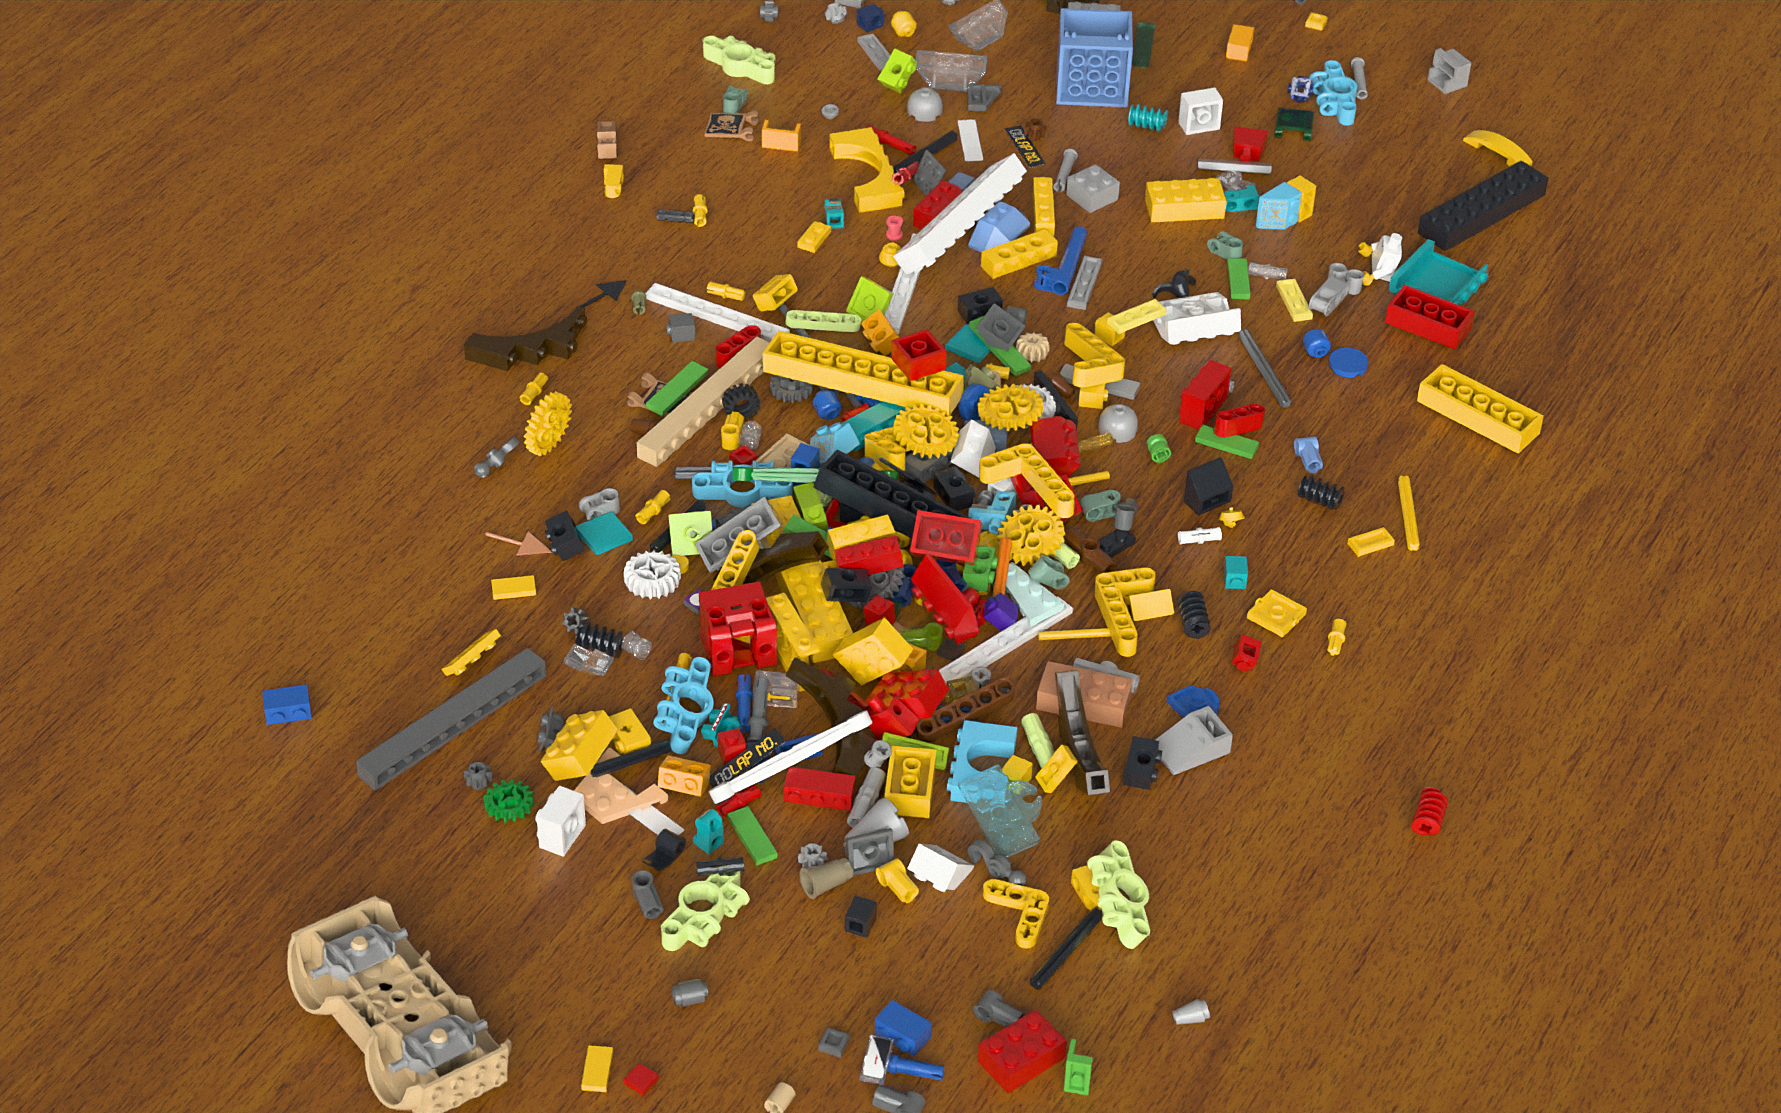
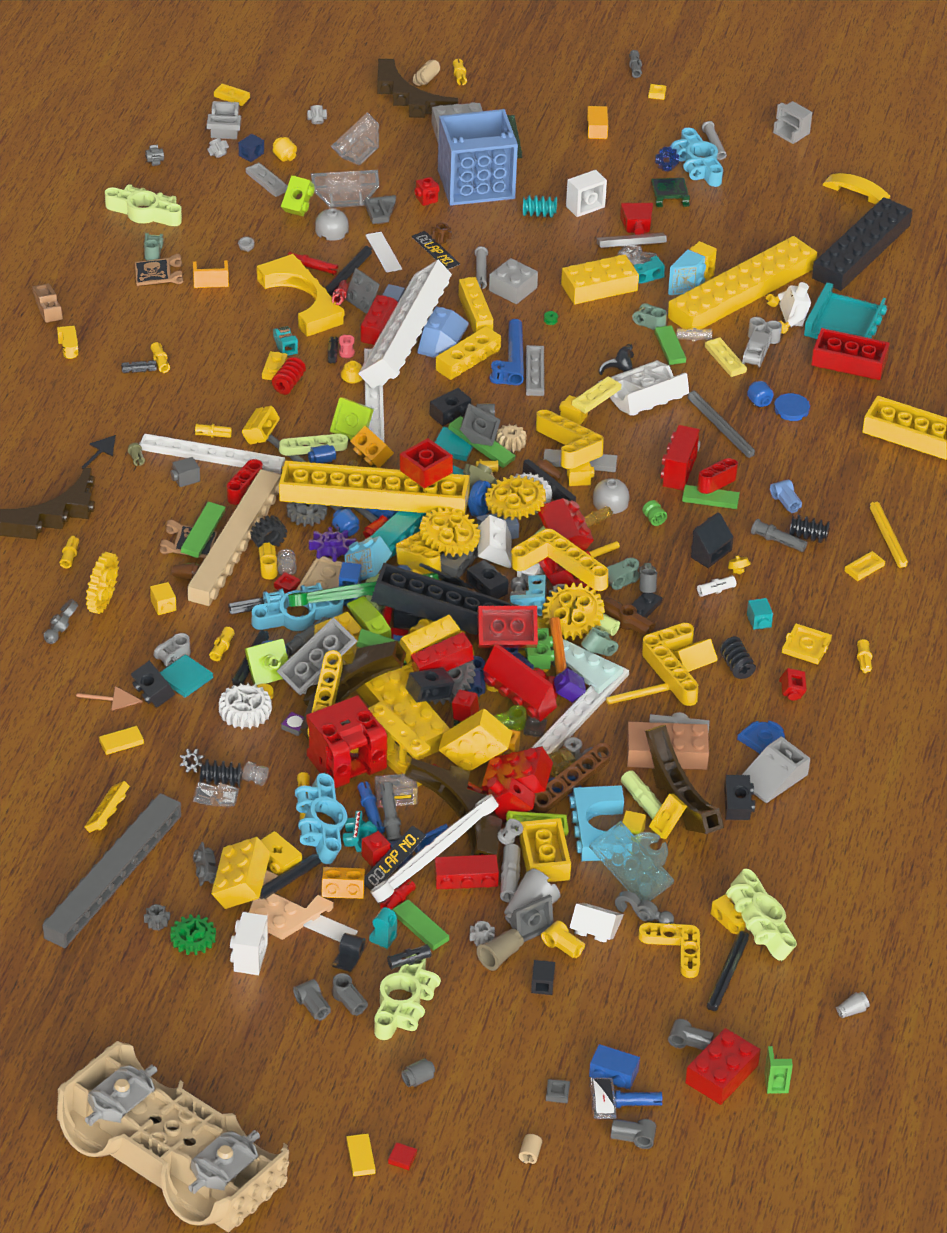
camera: 15 degrees left, 0 degrees up
(606, 888) = (310, 995): none -> dark grey piece
(609, 450) = (163, 598): none -> yellow brick
(802, 423) = (330, 543): none -> dark purple gear
(823, 247) = (288, 375): none -> red piece
(828, 332) = (322, 454): none -> blue brick
(879, 230) = (332, 349): none -> black axle
(1035, 85) = (427, 191): none -> red brick
(1120, 232) = (550, 317): none -> green piece
(1278, 489) = (771, 533): none -> dark grey pin
(1336, 228) = (742, 284): none -> yellow brick

